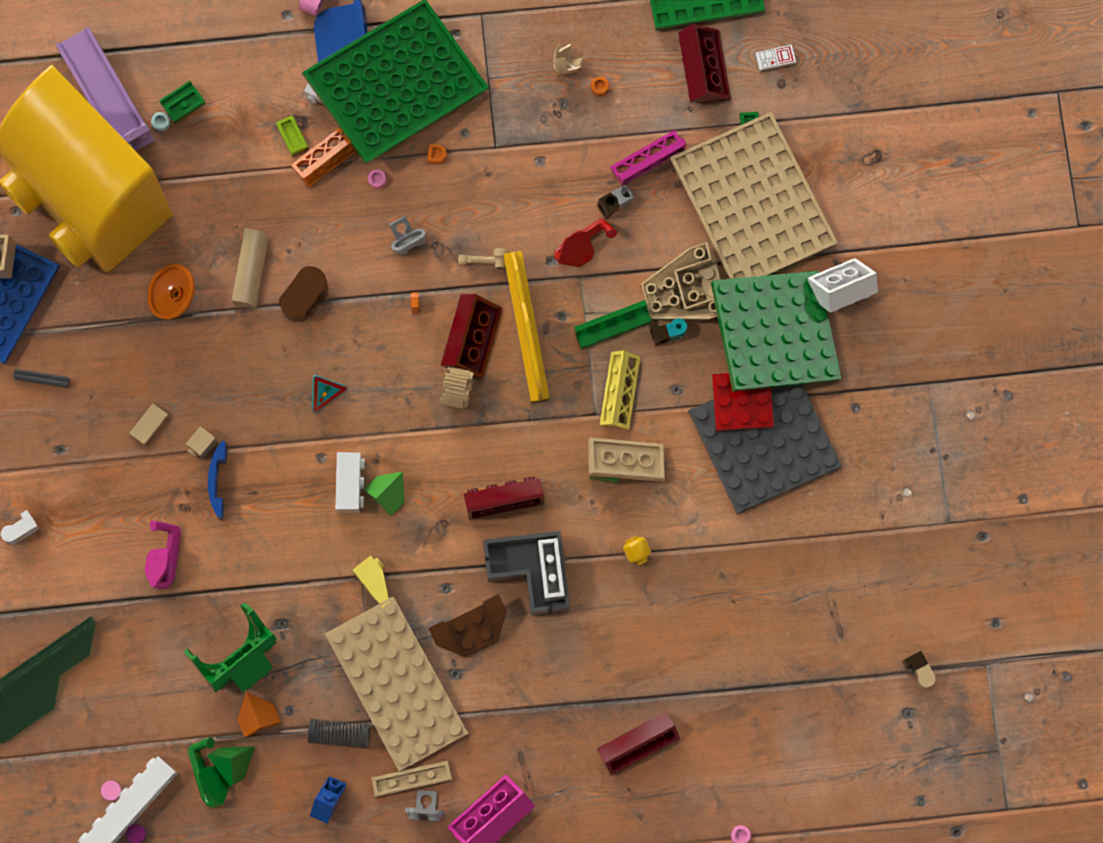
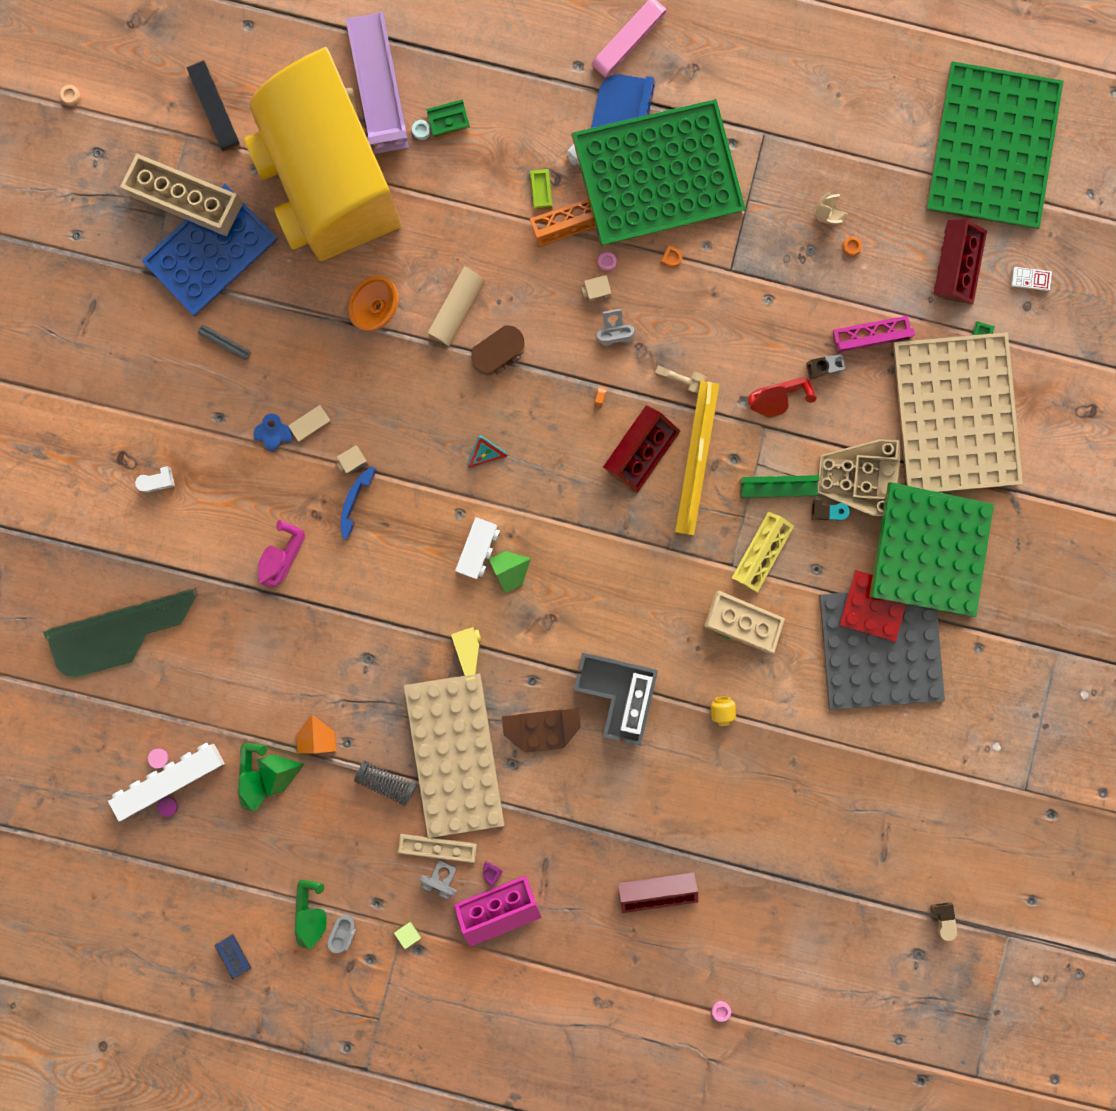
camera: 15 degrees right, 10 degrees up
(117, 447) = (272, 435): none -> blue plate
(245, 664) = (317, 689): green piece -> none
(327, 799) = (353, 840): blue slope -> none
(376, 206) = (596, 289): none -> tan brick
(456, 388) = (609, 494): tan brick -> none
(472, 784) = (491, 873): none -> magenta tile
(504, 498) = (616, 616): dark red slope -> none
(843, 285) = (1013, 528): white slope -> none

